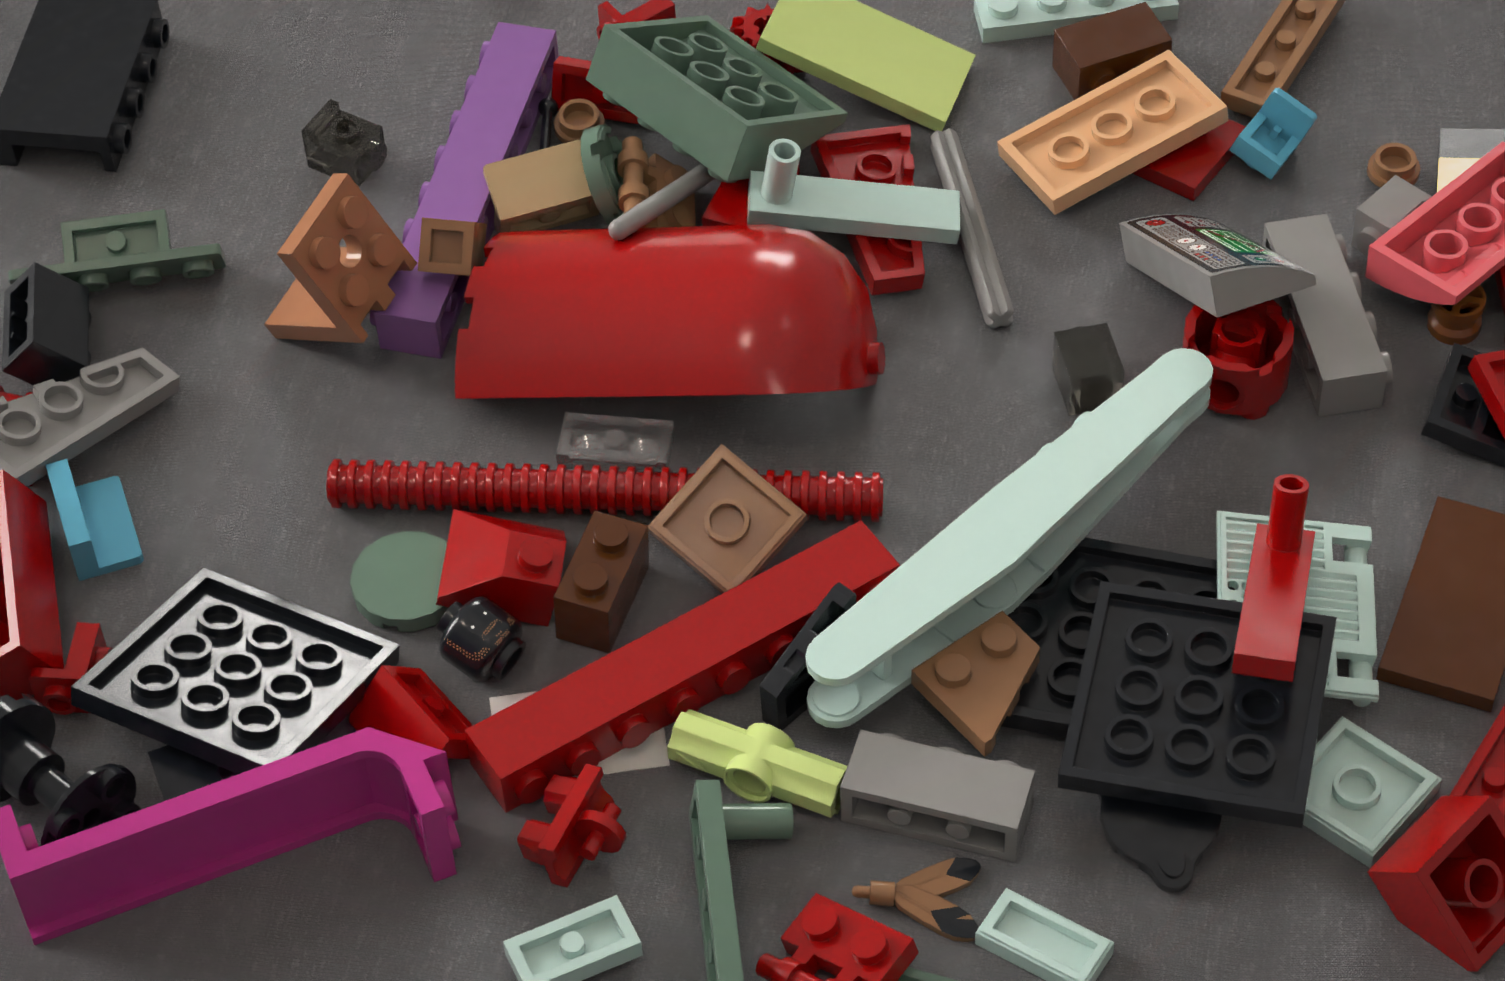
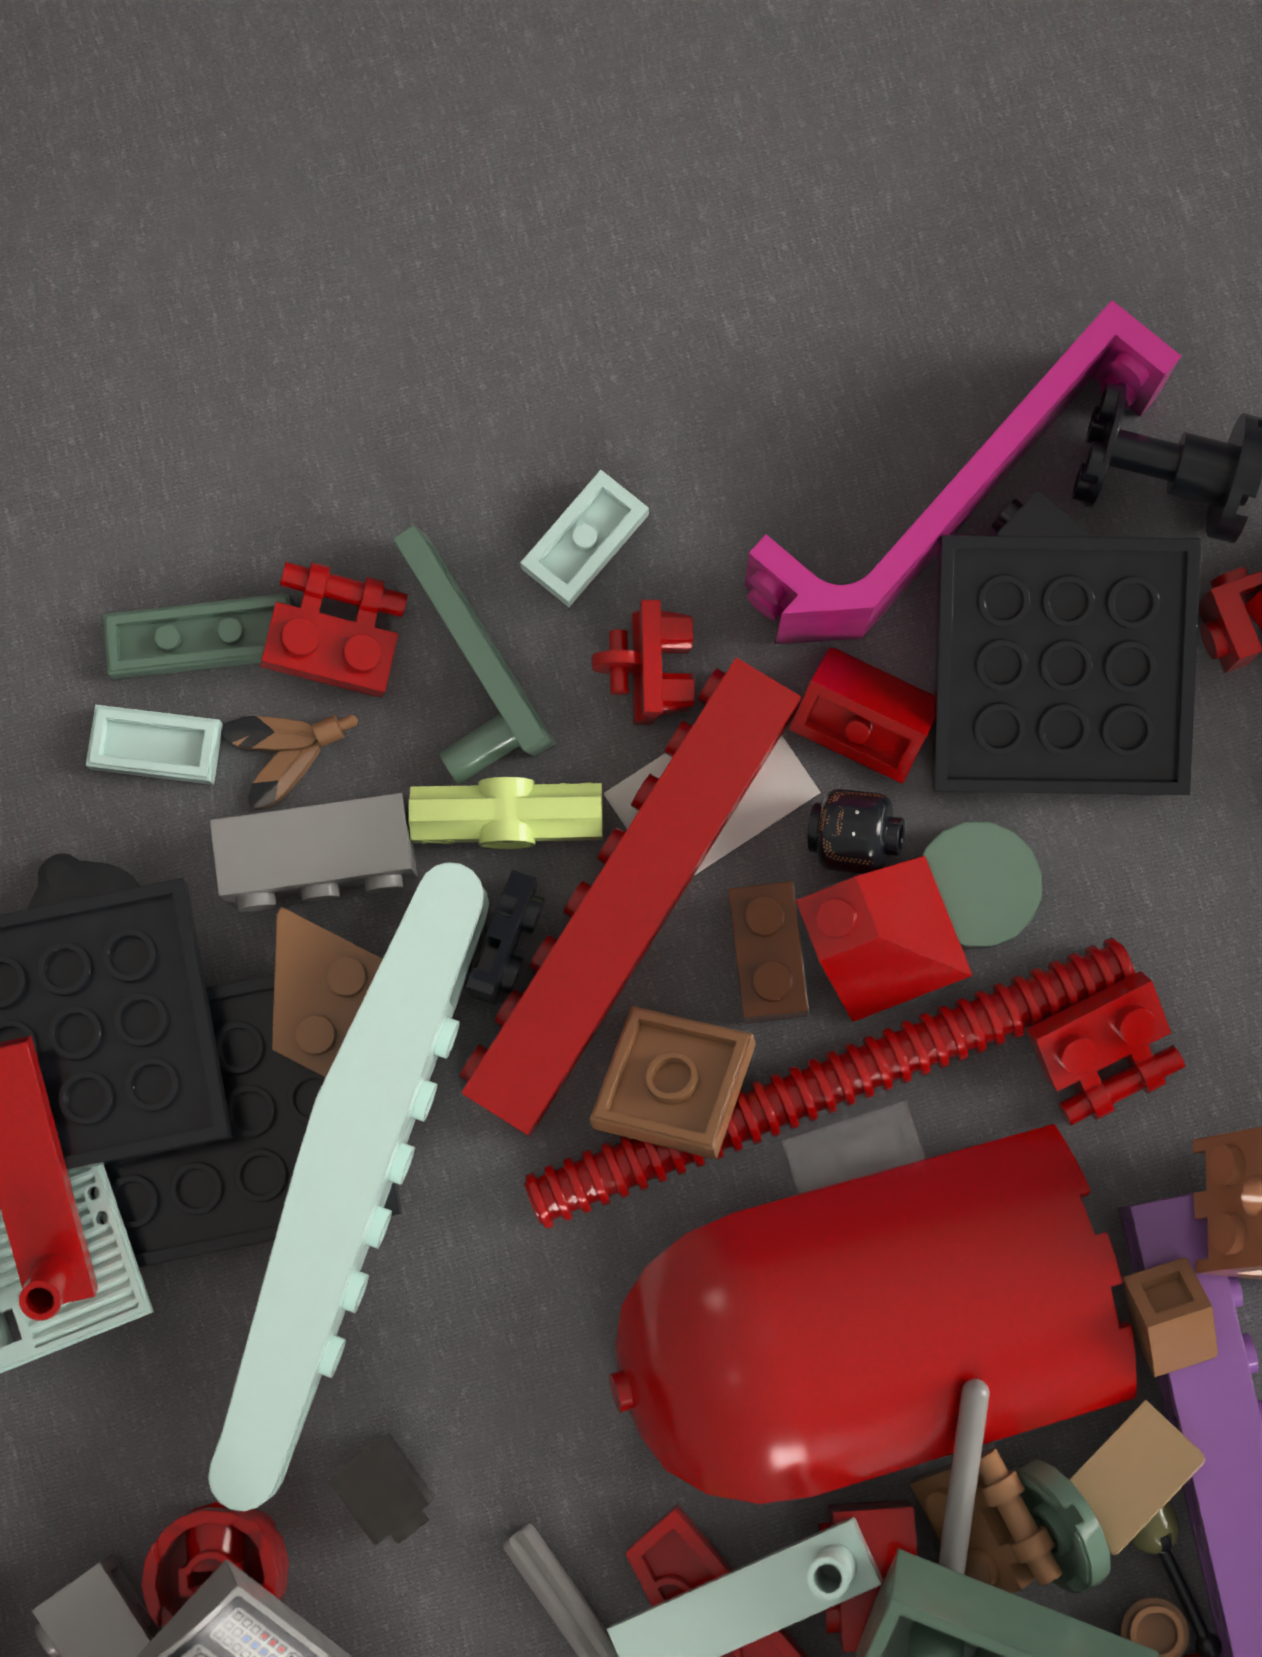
camera: 155 degrees right, 30 degrees up
(384, 431) = (1098, 1033): none -> red plate

